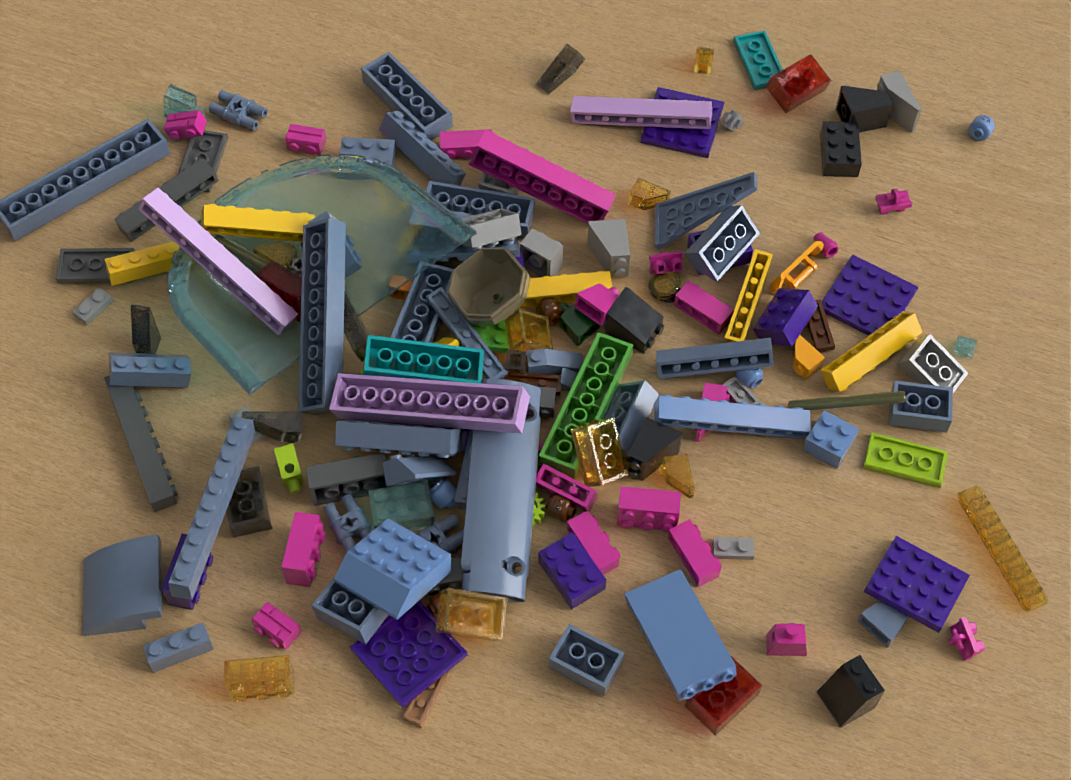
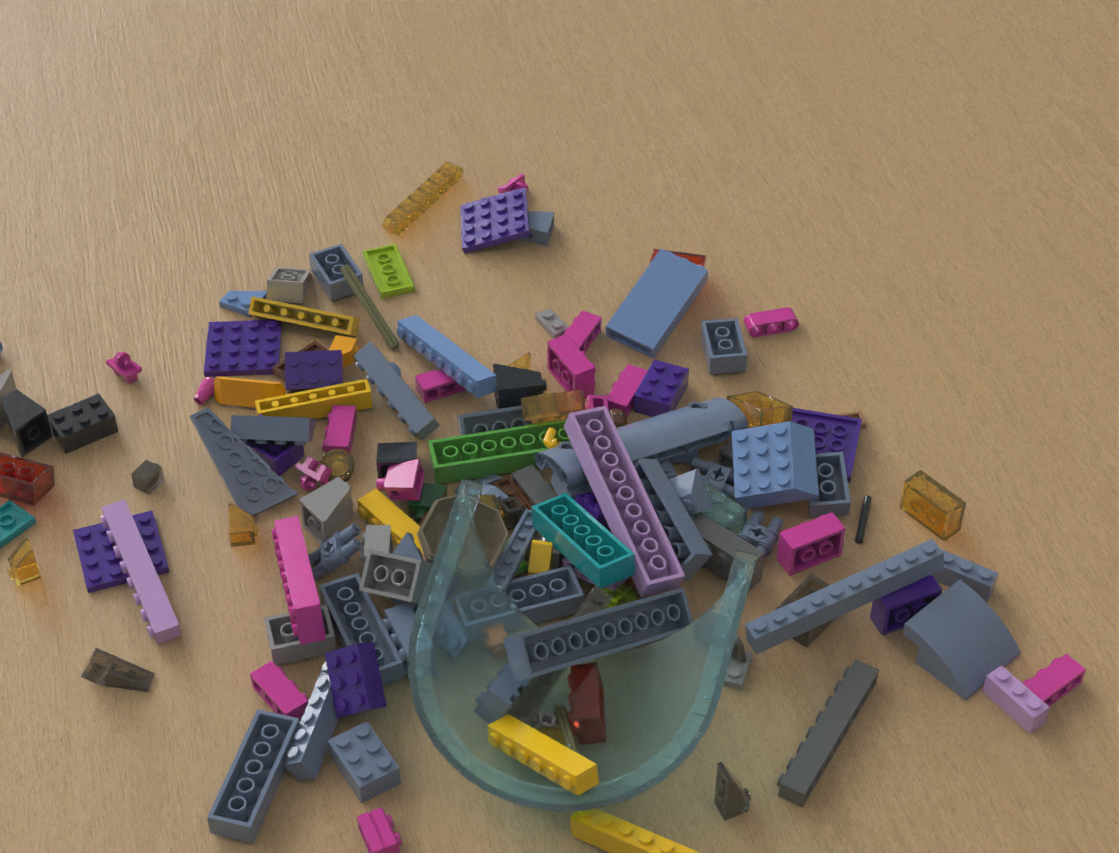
camera: 125 degrees left, 15 degrees down
(33, 625) = (1056, 679): none -> dark pink brick
(45, 584) = (1015, 699): none -> lavender brick
(149, 370) = (762, 762): sand blue slope -> none
(218, 261) = (617, 750): lavender brick -> none
(276, 626) = (882, 530): dark pink brick -> none
(289, 468) = (755, 602): lime torso -> none
(304, 627) = (863, 519): none -> black bar
(427, 168) = (355, 679): none -> dark purple brick
(558, 423) = (549, 440): none -> yellow arm
(563, 227) = (335, 551): none -> sand blue pin
(593, 736) = (771, 322): none -> dark pink beam
(732, 120) = (94, 508): light grey gear -> none
(740, 392) = (411, 369): light grey plate -> none
(746, 163) = (147, 477): none -> clear smoke brick
(786, 640) = (602, 259): dark pink torso -> none
(830, 439) = (407, 303): medium blue brick -> none
(851, 691) = (611, 214): black slope -> none
(936, 324) = (240, 300): none -> medium blue wing
(965, 347) = (249, 279): clear light blue plate -> none

